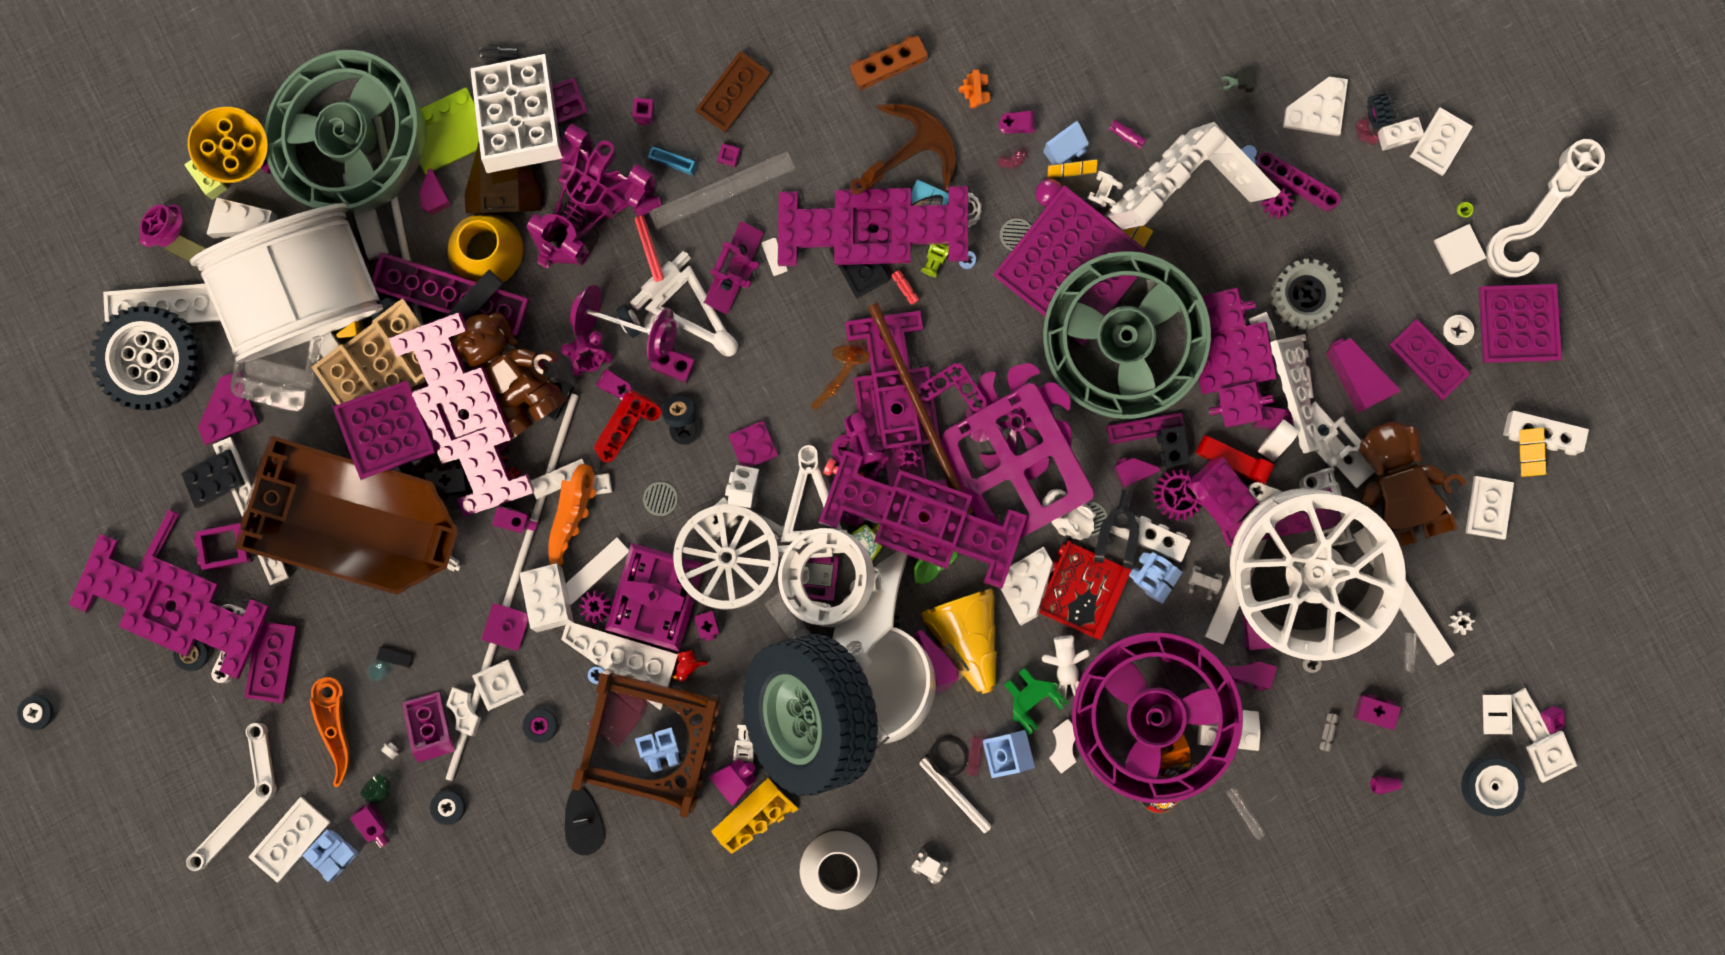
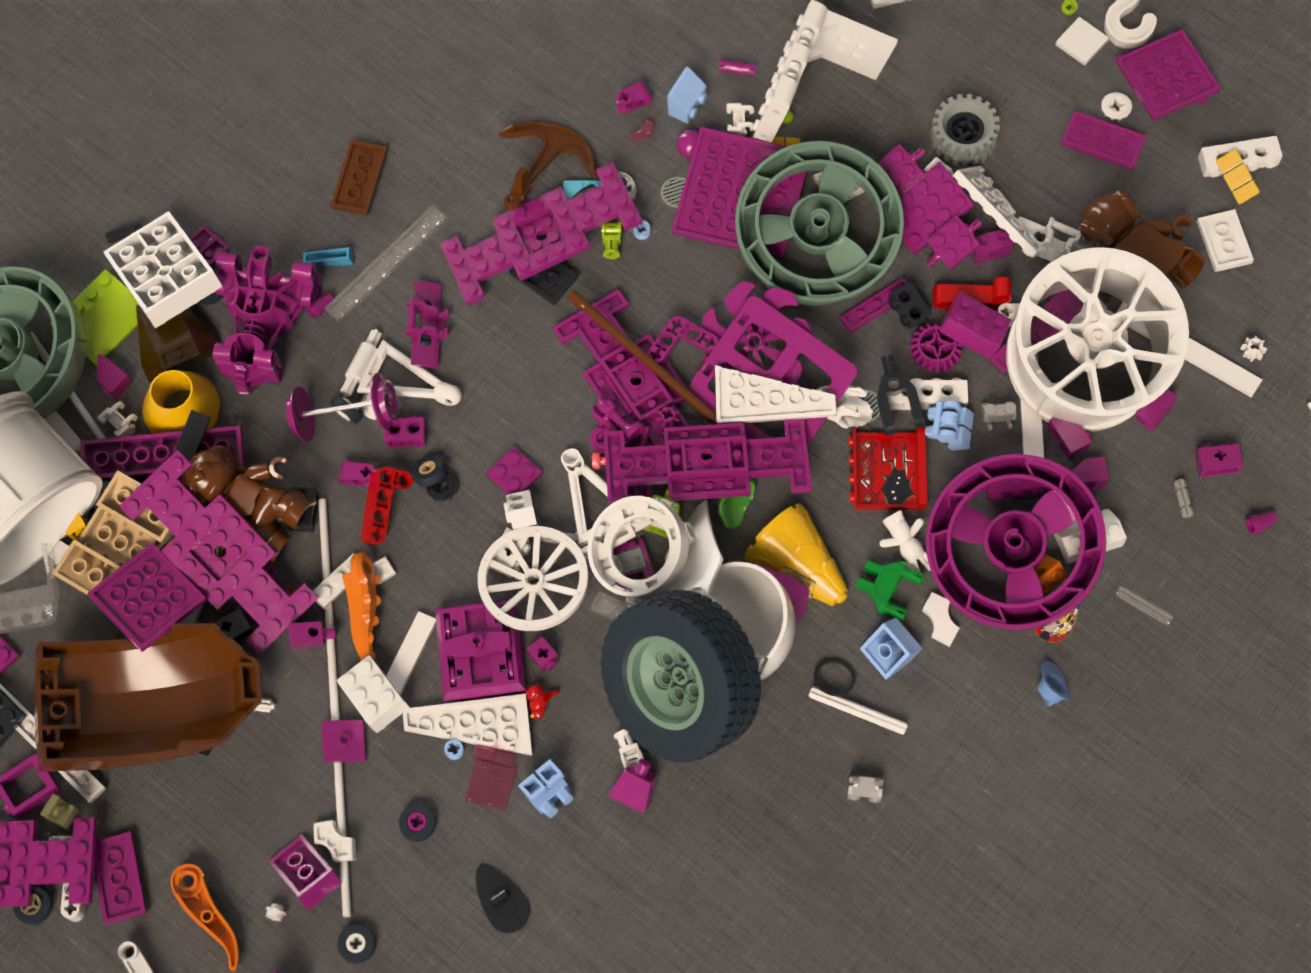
camera: 20 degrees left, 15 degrees down
(240, 587) = (59, 812): none -> olive arch
(376, 672) = (230, 841): clear light blue tile -> none
(376, 789) = (276, 956): clear green hair -> none
(394, 657) = (243, 820): black piece -> none
(425, 243) = (118, 421): none -> white piece
(497, 685) = (358, 800): white plate -> none
(589, 363) = (326, 463): magenta piece -> none
(601, 603) = (423, 692): magenta gear -> none
(643, 111) = (282, 224): magenta brick -> none
(649, 248) = (338, 338): coral axle -> none
(660, 498) = (445, 560): light grey sticker -> none
(681, 798) = (570, 728): reddish brown arch -> none
(728, 155) = (378, 232): magenta tile -> none
(753, 816) = (669, 814): yellow wedge -> none
(771, 250) = (456, 298): white sticker -> none
(838, 843) = (774, 858): white cone -> none
(849, 359) = (571, 356): clear orange dish -> none
(865, 79) = (491, 105): dark orange brick -> none
(905, 287) = (595, 276): coral axle -> none
(972, 89) = (579, 85): orange hips -> none
(974, 756) = (858, 666): clear pink axle -> none
(995, 479) = (761, 399): none -> white wing
(1027, 585) = (833, 484): white plate -> none
(1072, 169) = (701, 114): yellow sticker -> none
(1132, 849) = (1053, 684): none -> medium blue piece
(1133, 471) = (884, 343): magenta slope -> none
(1278, 440) = (1003, 256): white beam -> none
(1279, 209) = (900, 68): magenta gear -> none
(1306, 182) = (918, 43): magenta beam -> none
(1316, 668) = (1131, 449): light grey bush -> none
(1359, 375) = (1048, 175): magenta slope -> none
(1410, 652) = (1220, 395): clear pin -> none

